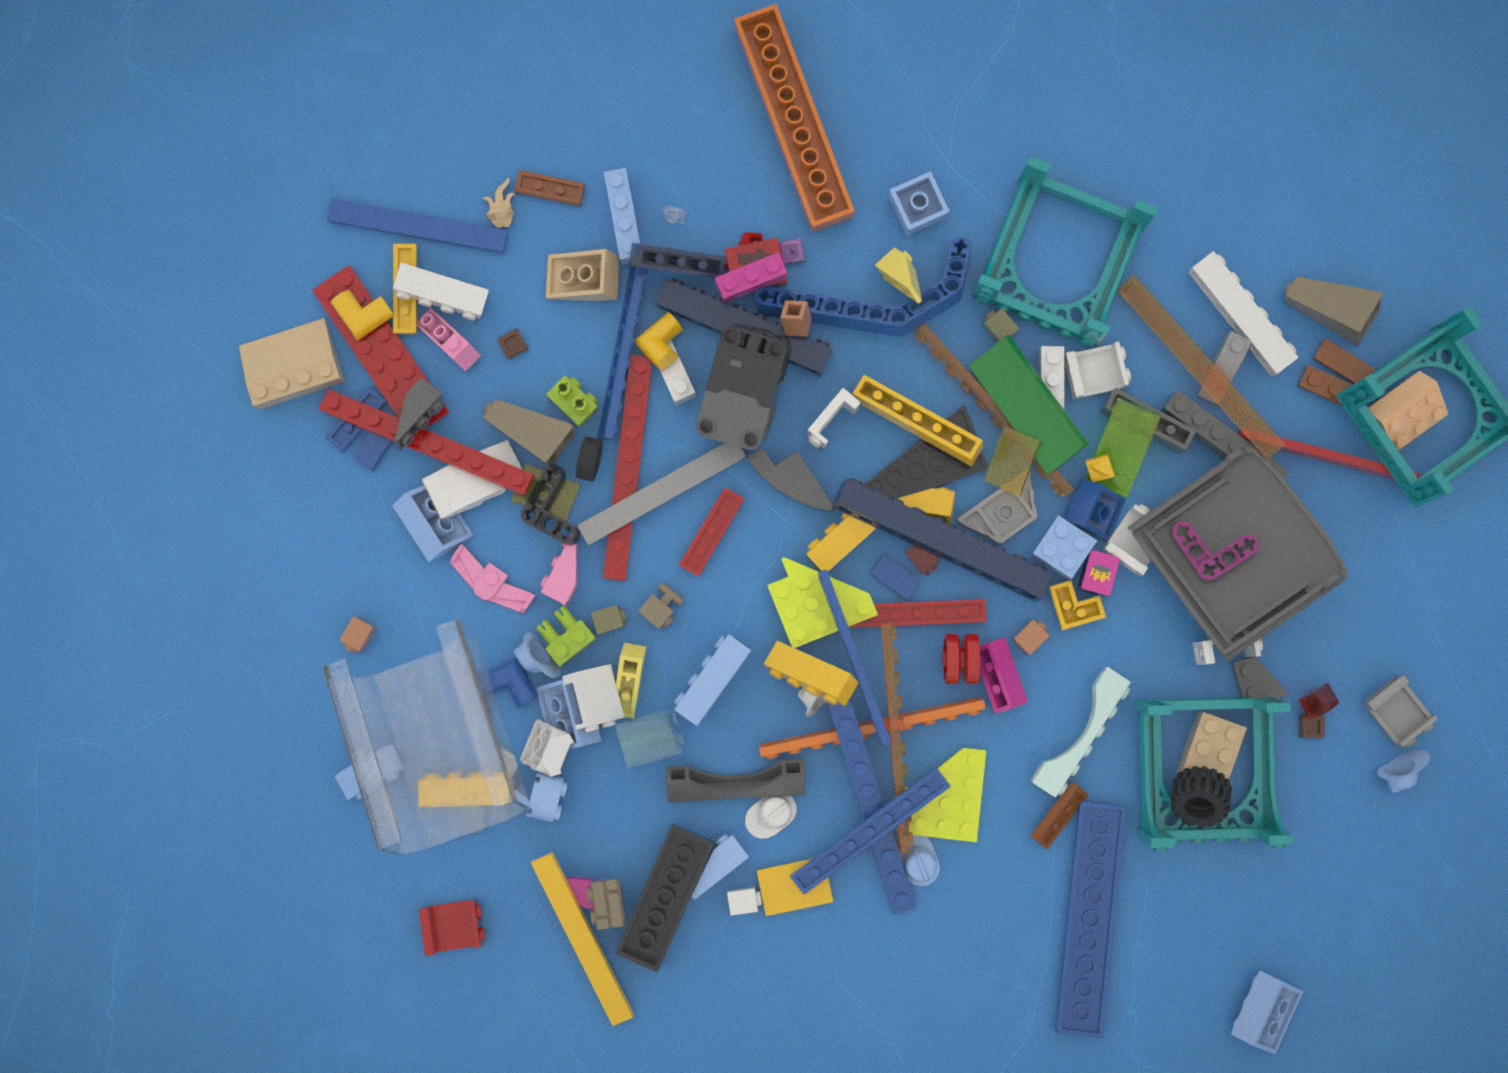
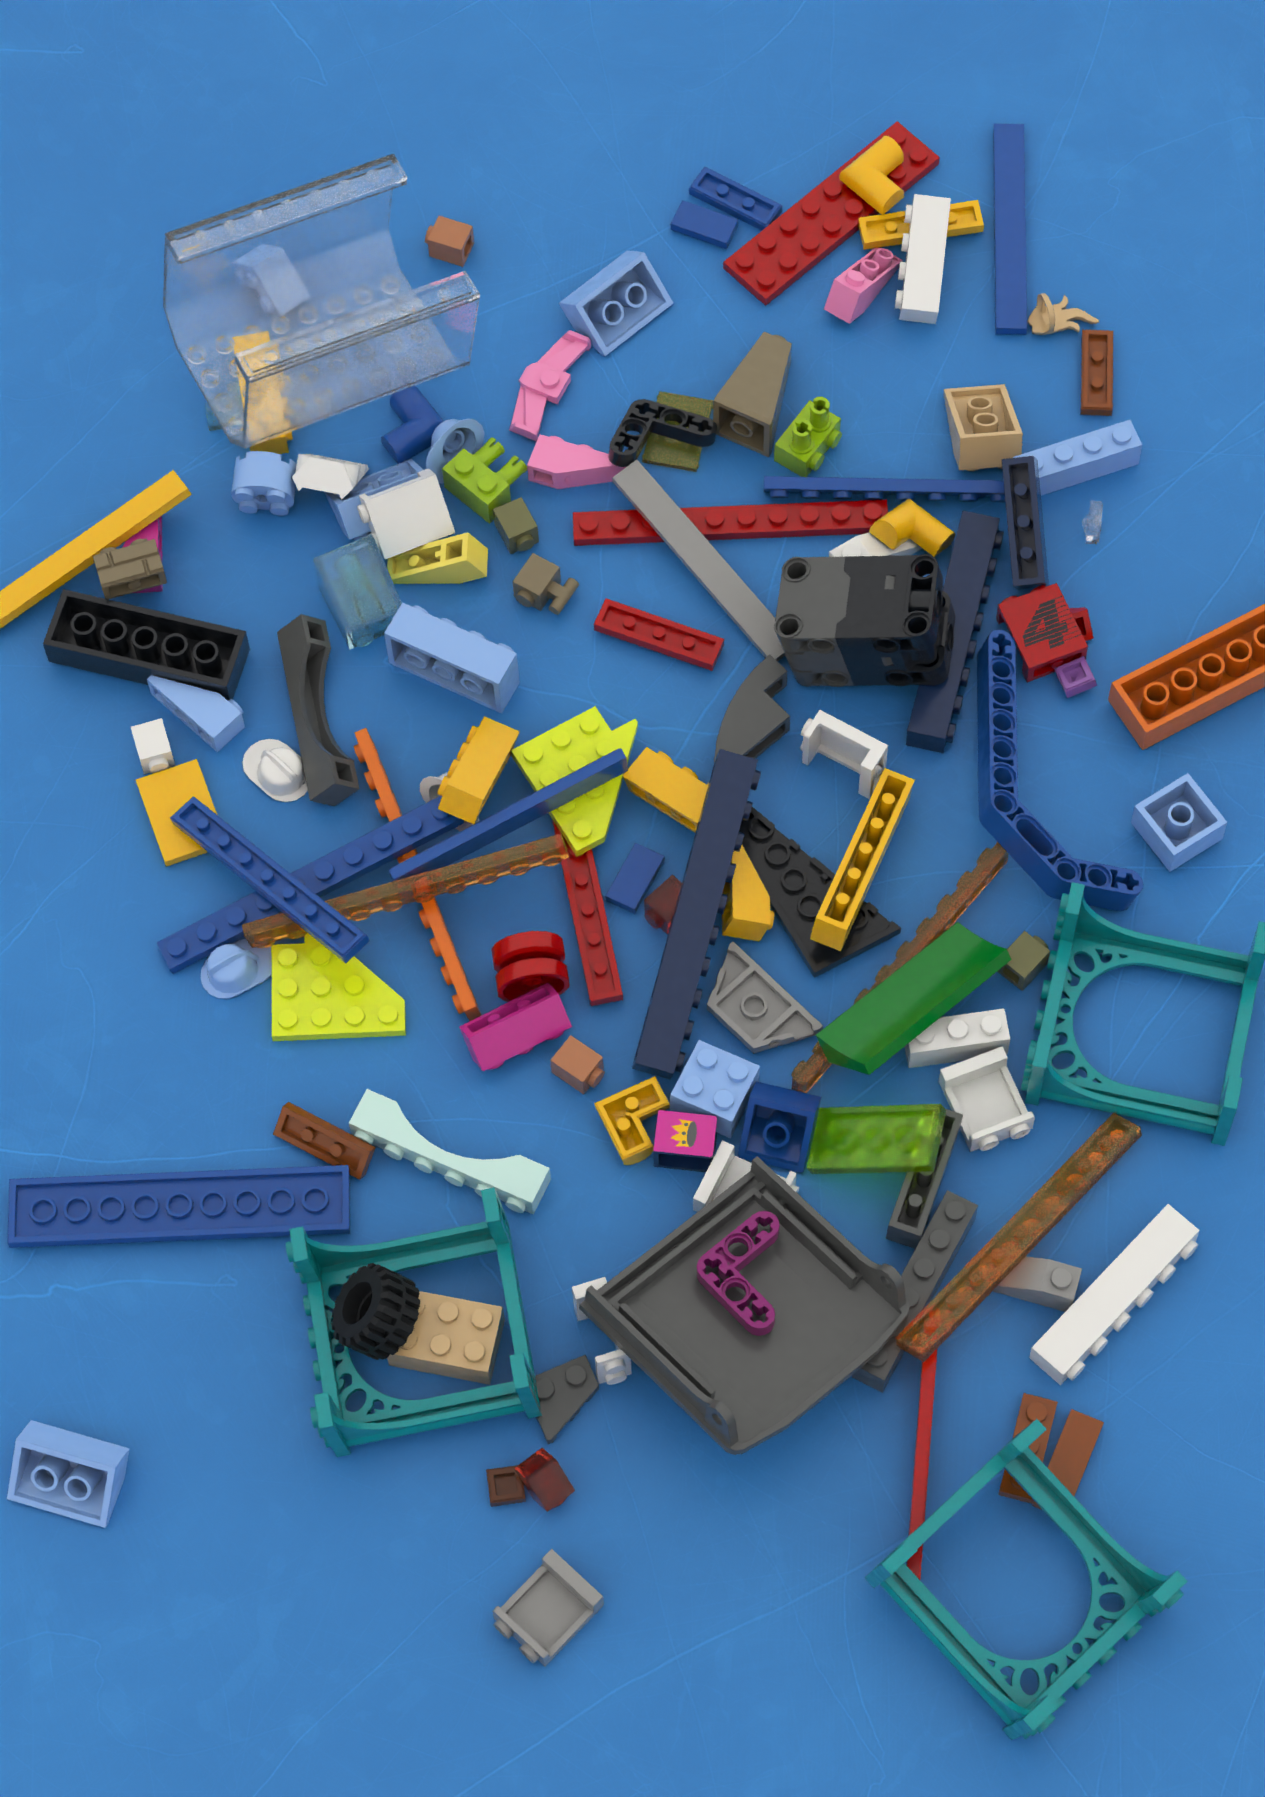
camera: 80 degrees right, 20 degrees down
(290, 364) = (792, 114): tan slope -> none
(419, 406) = (755, 247): dark grey slope -> none
(428, 443) = (716, 275): red plate -> none
(451, 926) = (78, 405): red panel -> none
(458, 491) = (678, 338): white slope -> none
(512, 344) = (873, 361): reddish brown tile -> none
(589, 458) = (731, 464): black tyre -> none
(751, 277) = (1020, 613): dark pink brick -> none
(796, 318) = (975, 676): nougat brick -> none
(900, 273) = (1070, 809): light yellow slope -> none
(1012, 461) = (828, 994): clear yellow piece -> none
(1100, 468) = (840, 1115): yellow tile -> none
(1335, 306) = (1153, 1436): dark tan slope -> none
(1404, 769) = (452, 1623): light blue piece -> none
(1410, 409) = (1010, 1545): light nougat brick -> none

